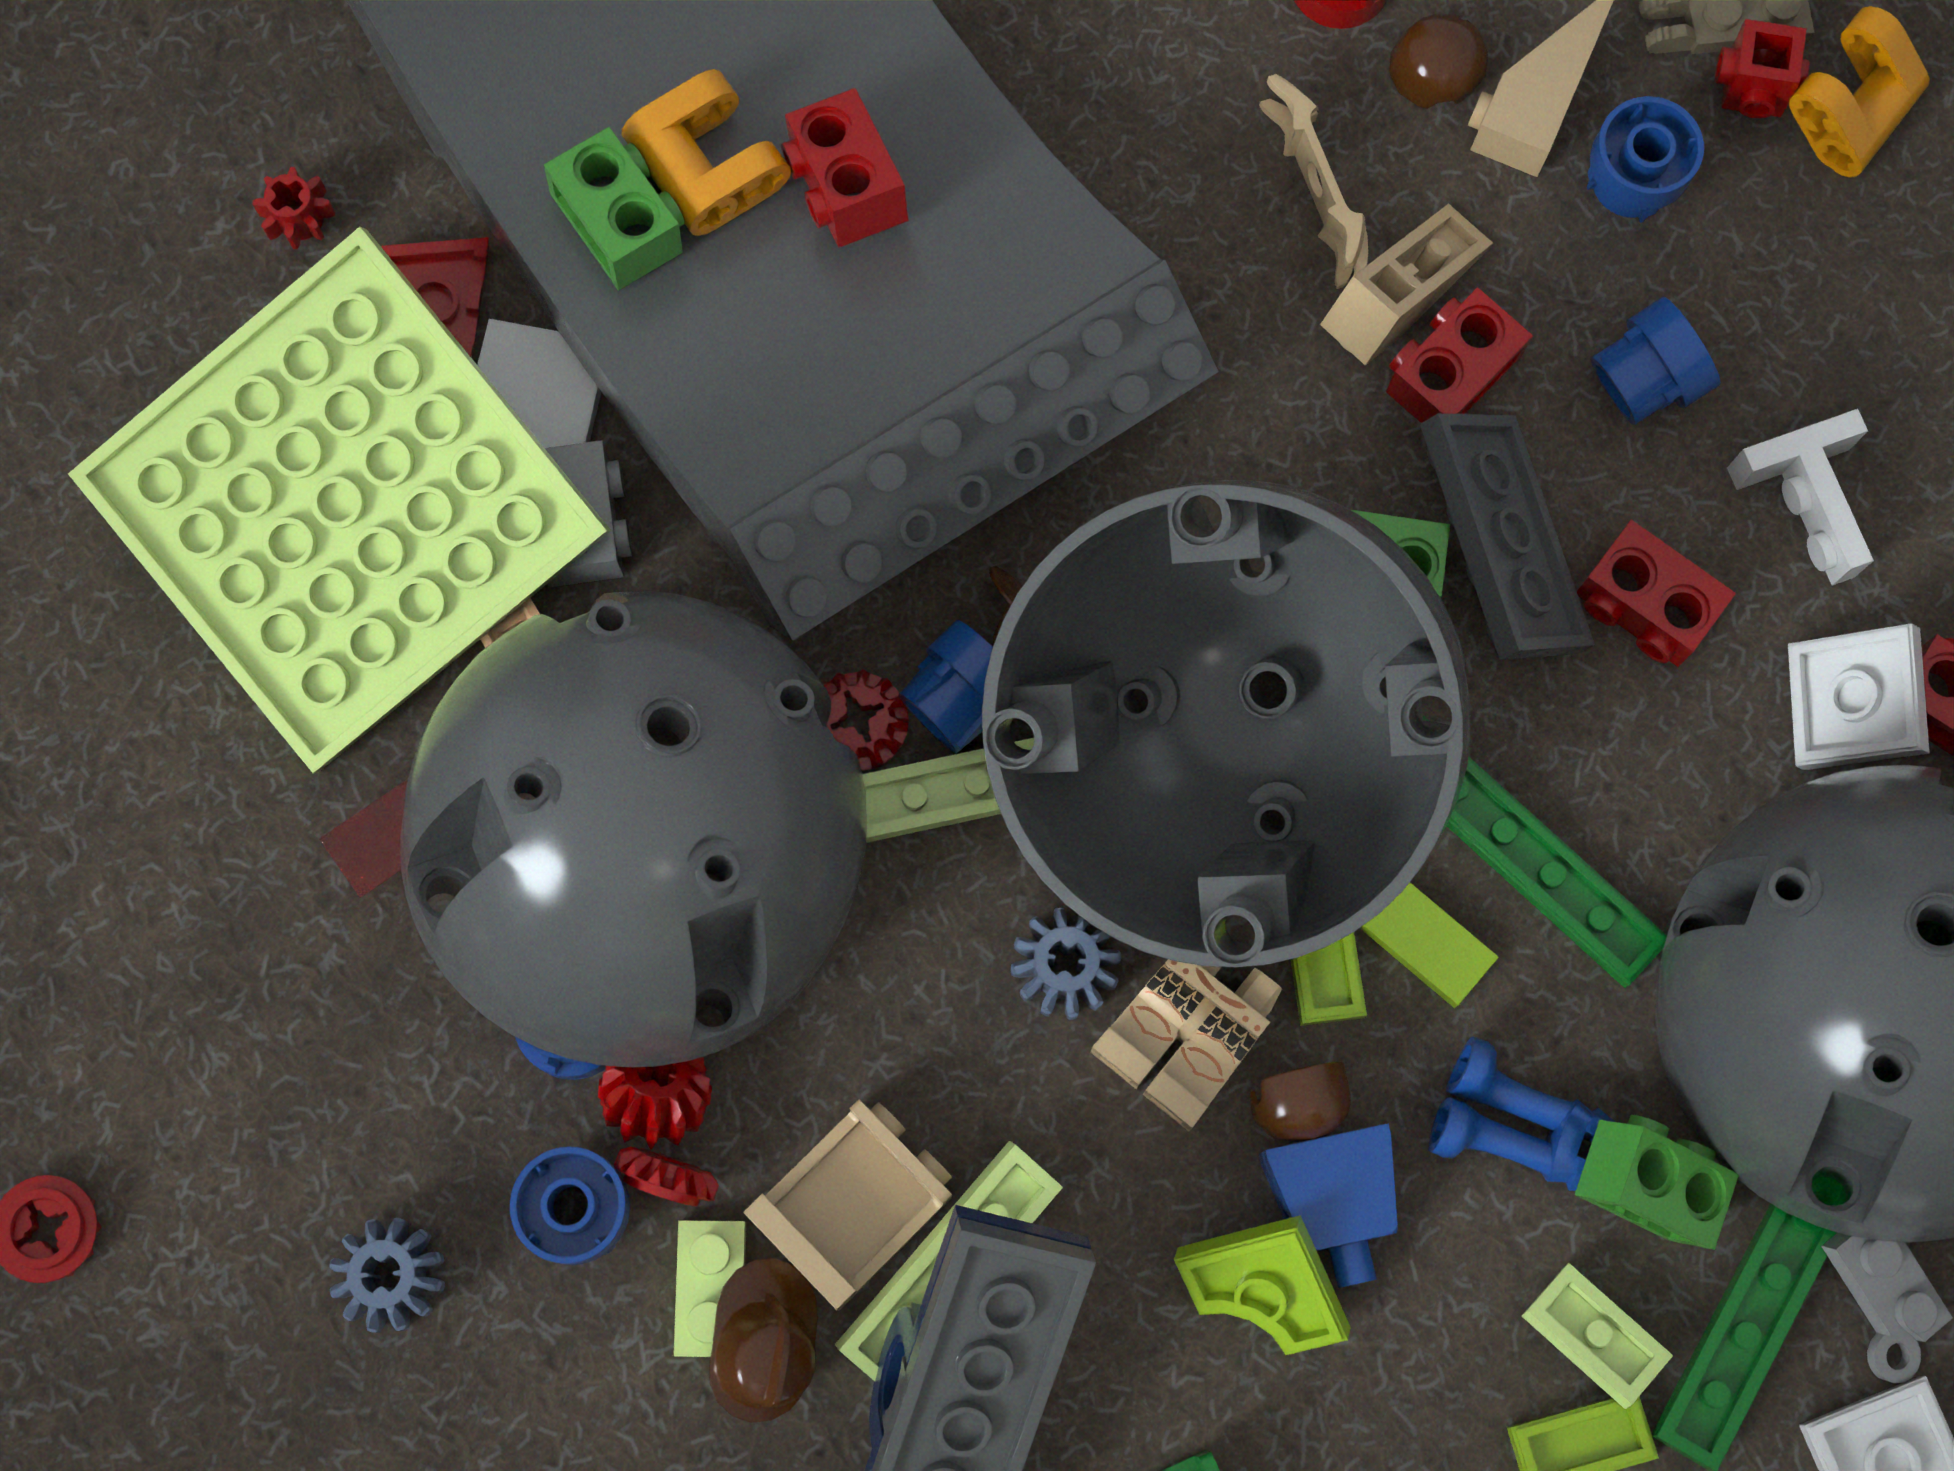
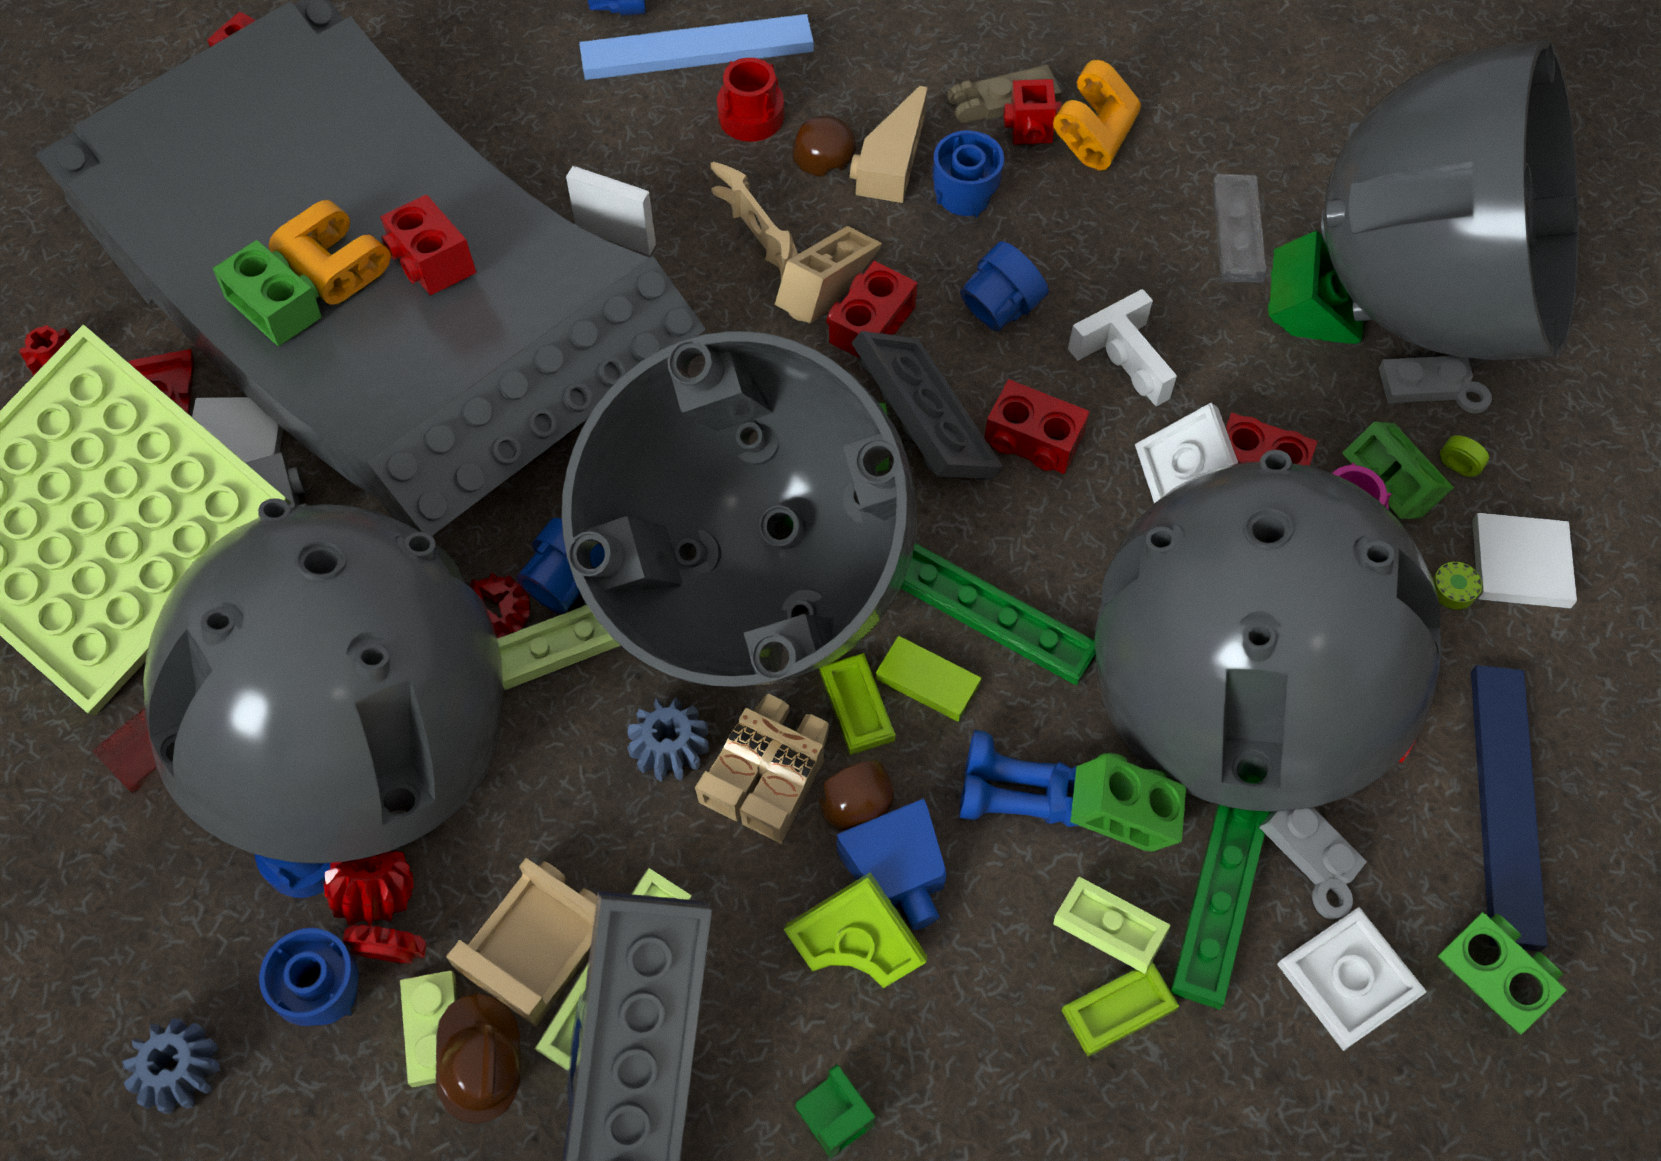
camera: 10 degrees left, 15 degrees down
(1111, 130) = (612, 209): none -> white tile

